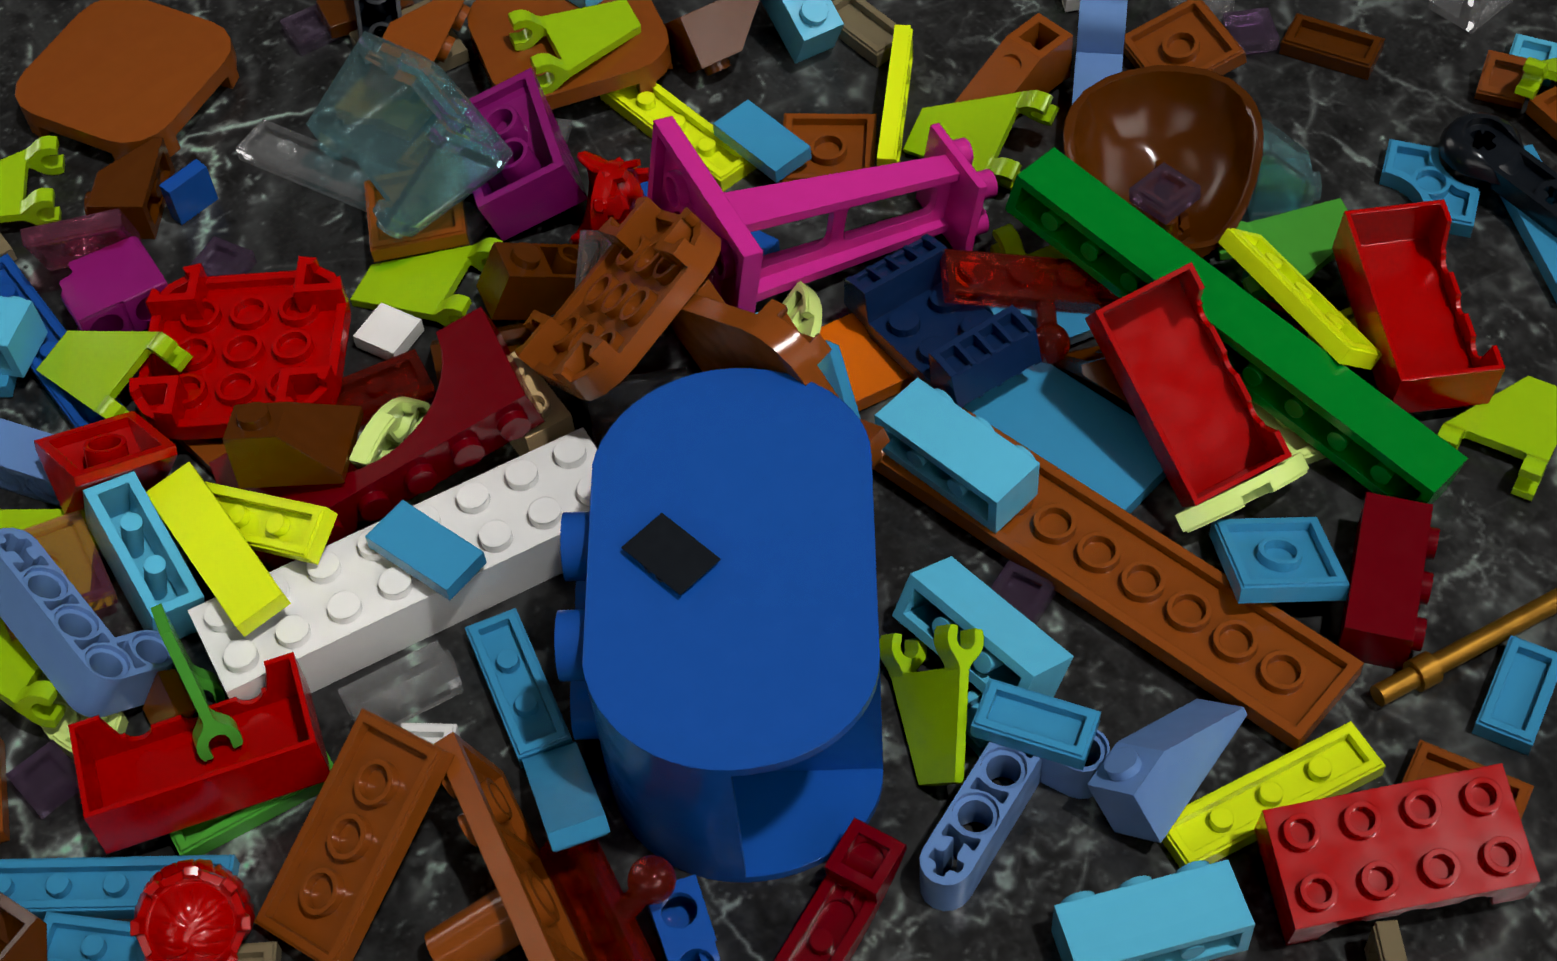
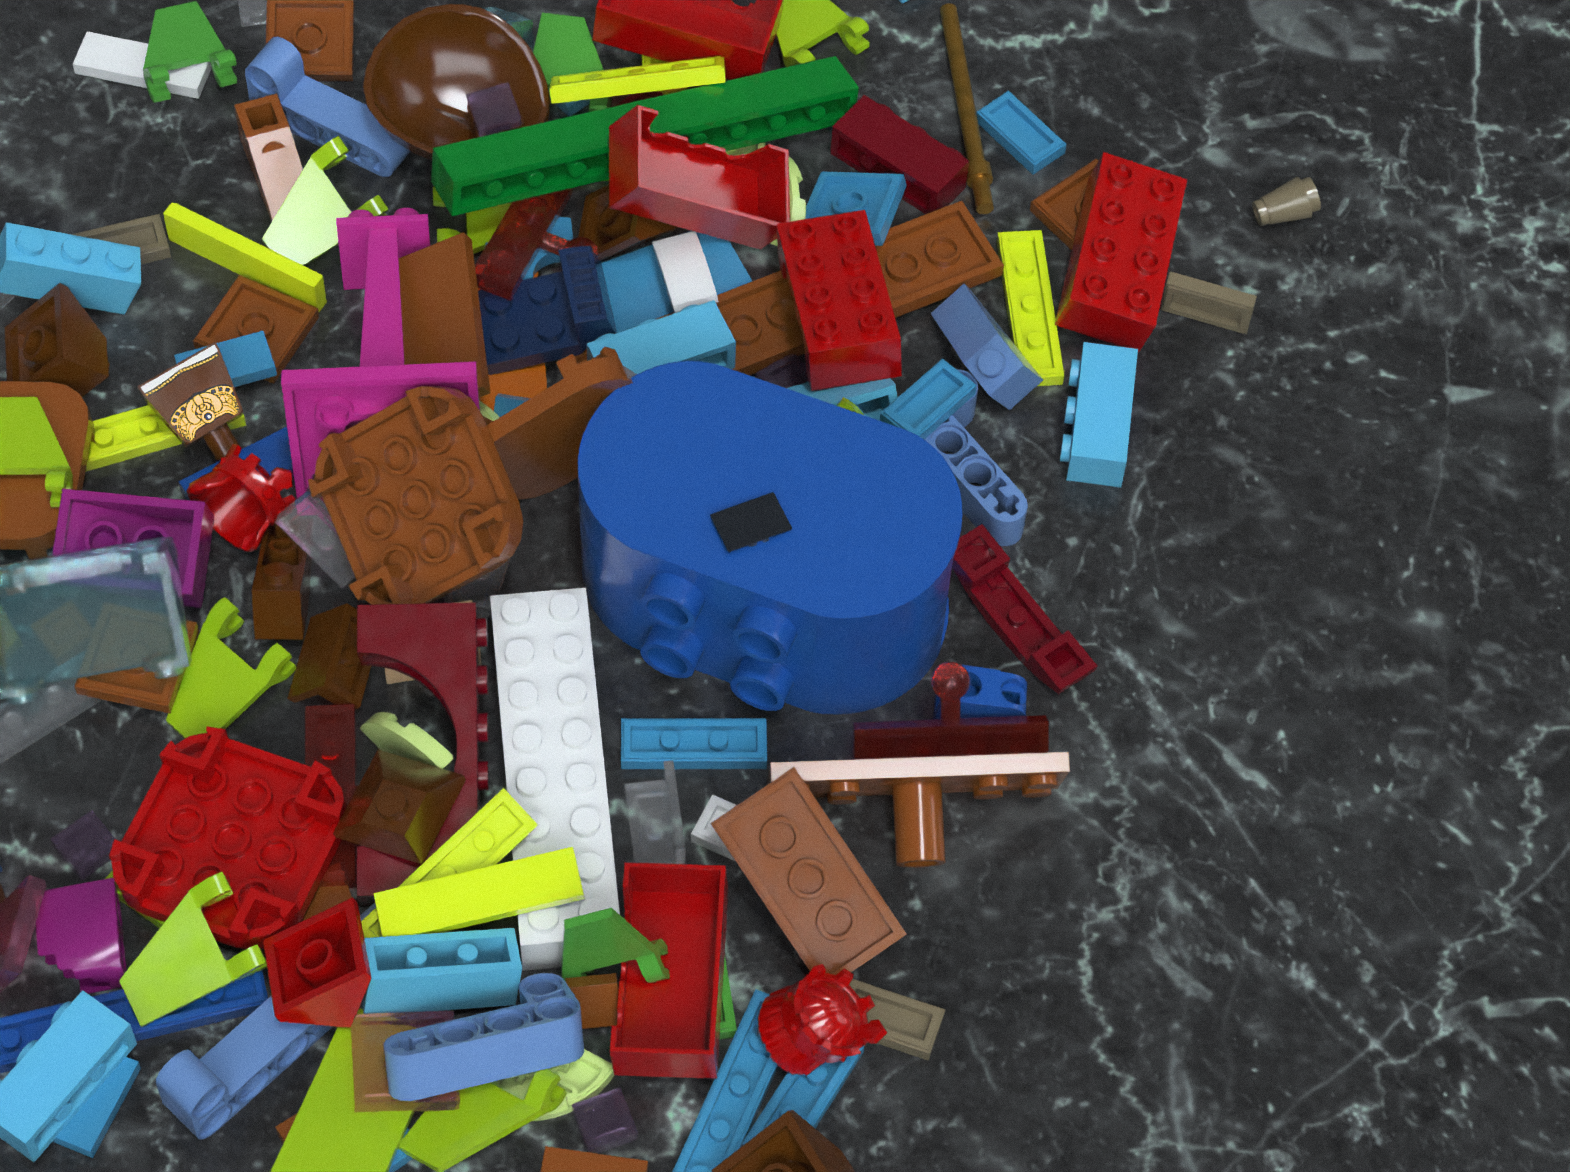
camera: 75 degrees left, 5 degrees up
(388, 332) = (261, 726): white tile -> none
(426, 549) = (569, 739): dark azure tile -> none
(565, 797) = (835, 725): dark azure tile -> none
(709, 117) = (196, 400): none -> torso
(867, 254) = (443, 307): none -> dark orange tile
(1077, 436) = (684, 270): none -> white slope
(1113, 577) = (840, 300): none -> red piece

